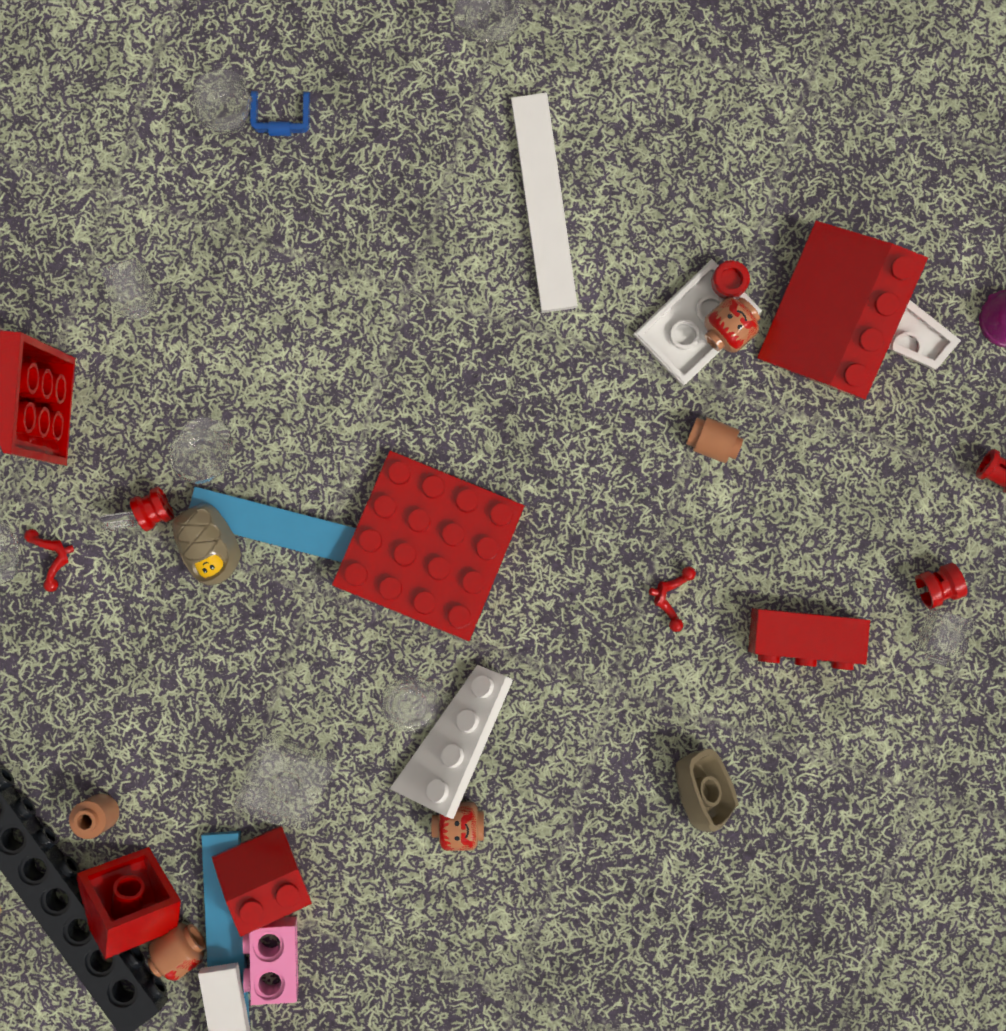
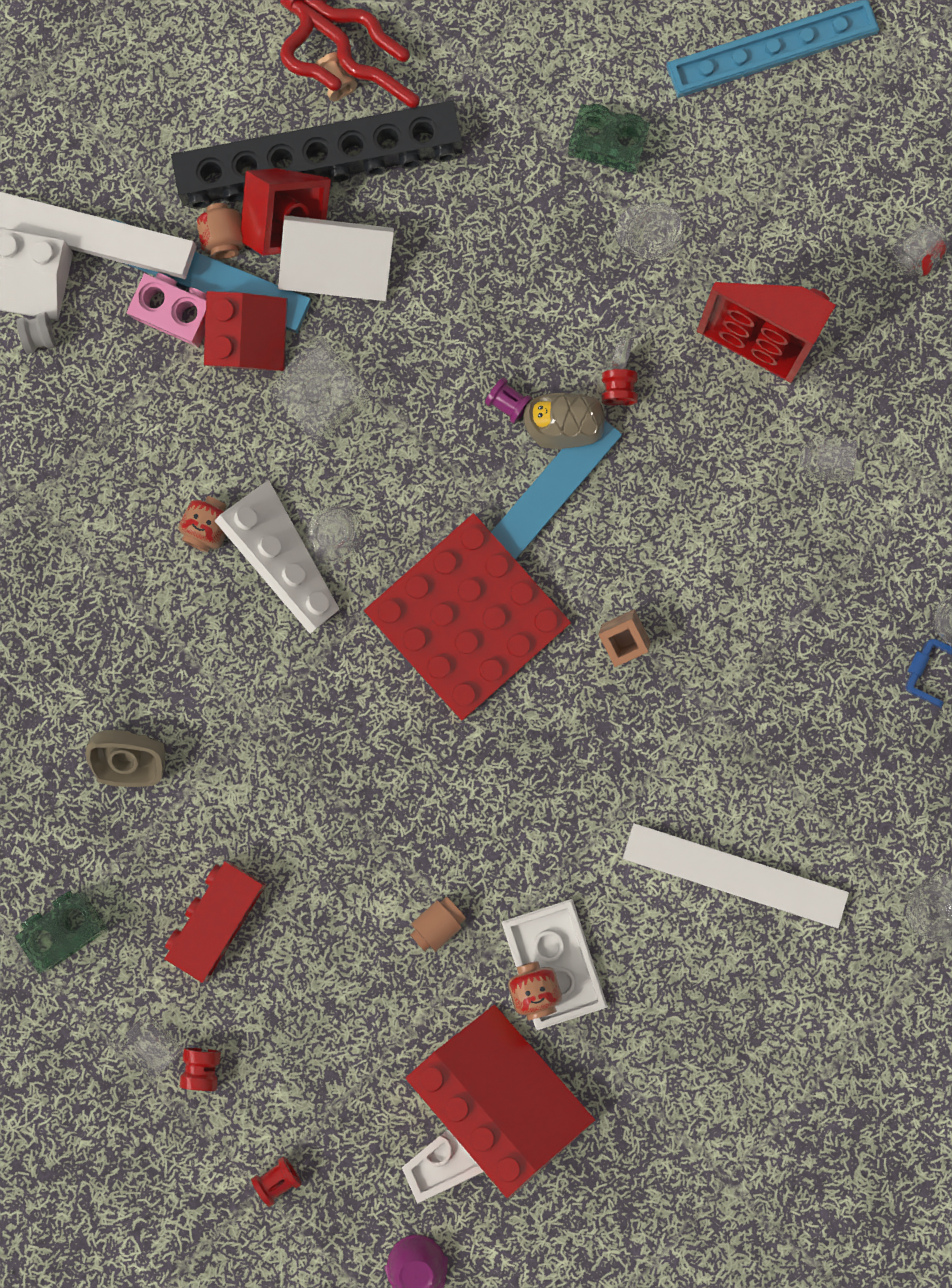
camera: 125 degrees right, 5 degrees down
(50, 583) = (646, 273): red piece -> none
(94, 816) = (373, 210): nougat brick -> none
(151, 831) = (335, 258): none -> white tile
(201, 450) = (651, 454): clear hat -> none
(212, 604) = (508, 400): none -> magenta bush
(381, 394) = (624, 638): none -> nougat brick
(688, 574) = (287, 806): red piece -> none
(730, 279) = (578, 1013): red tile -> none
(886, 765) = (64, 938): none -> clear green brick

